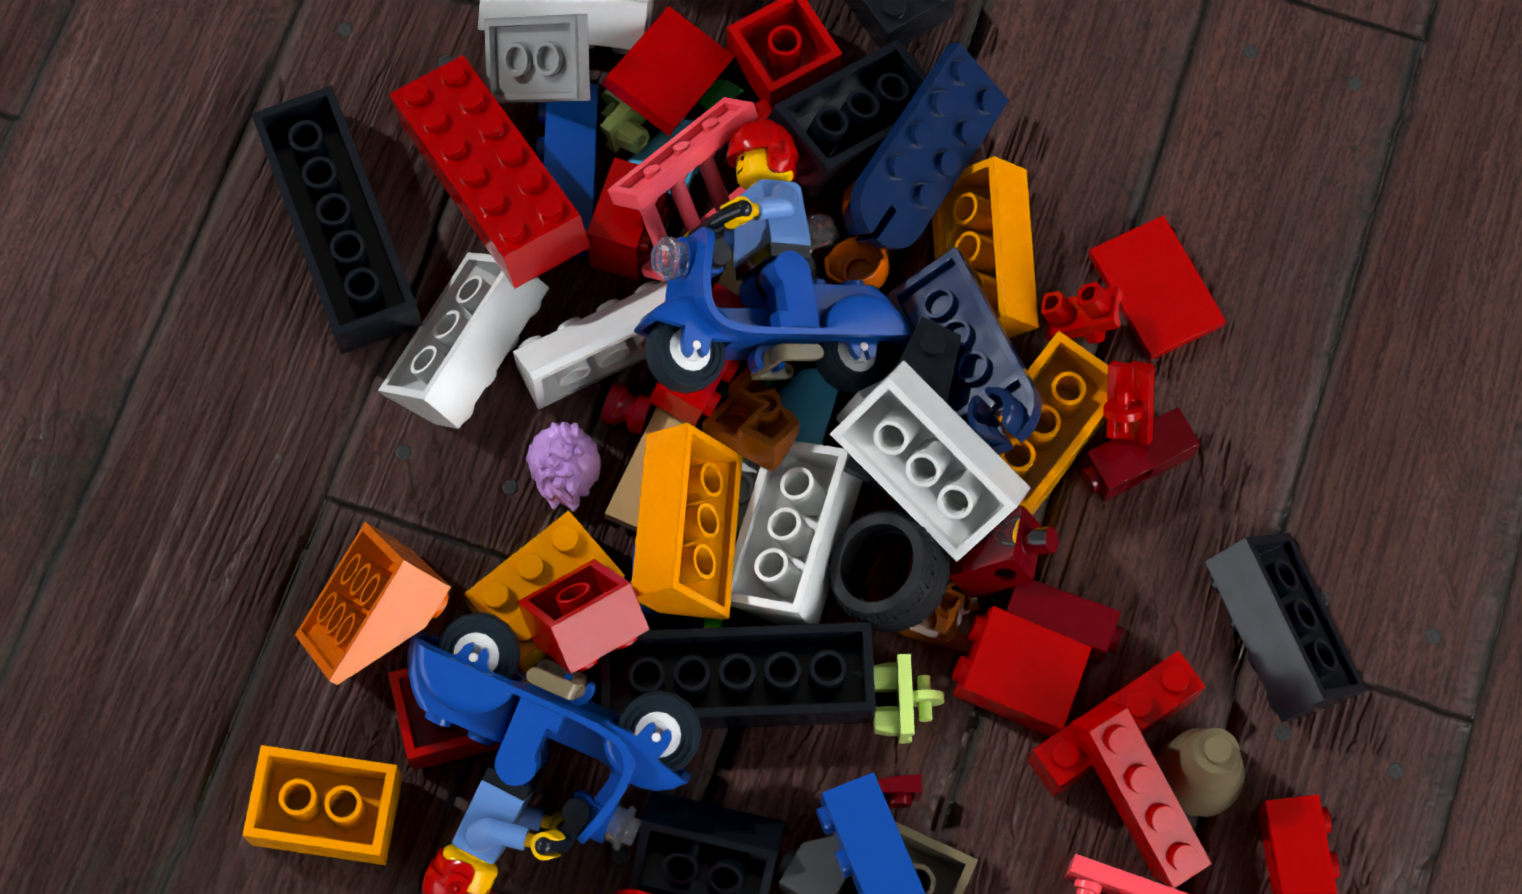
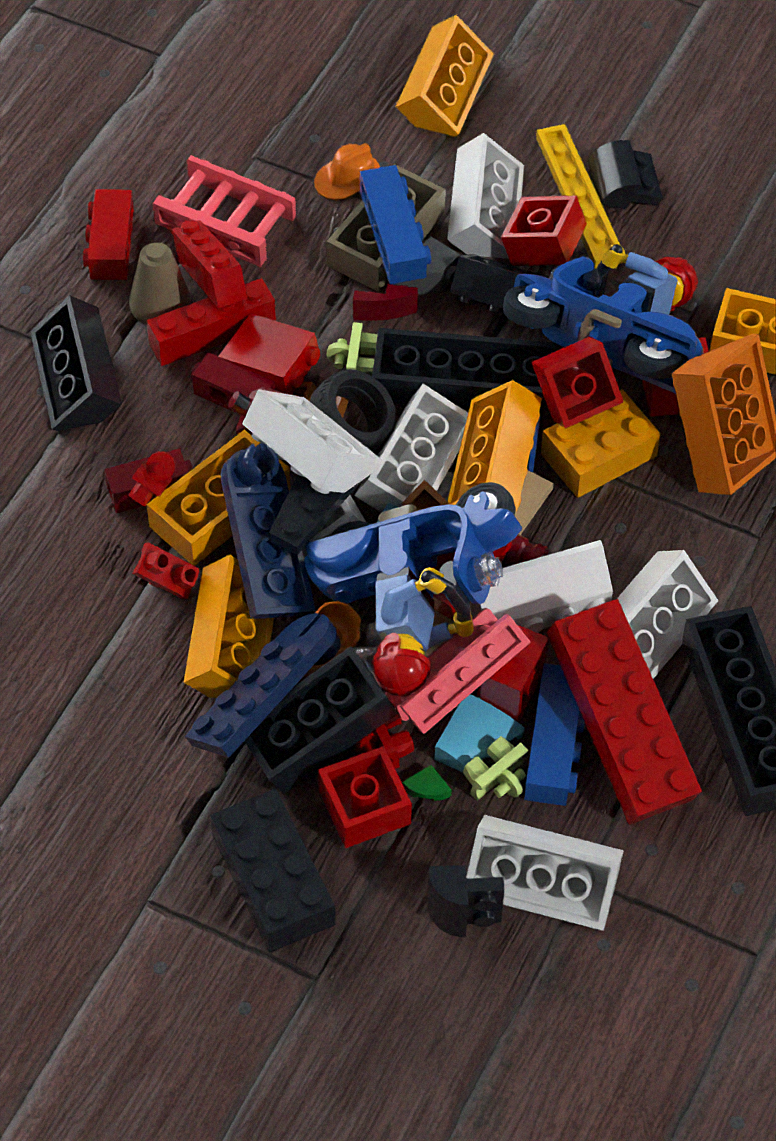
camera: 170 degrees left, 15 degrees down
(538, 58) = (576, 792): light grey tile -> none
(563, 464) = (578, 524): lavender hair -> none
(668, 70) = (465, 782): red tile -> none
(1161, 288) = (101, 598): red tile -> none

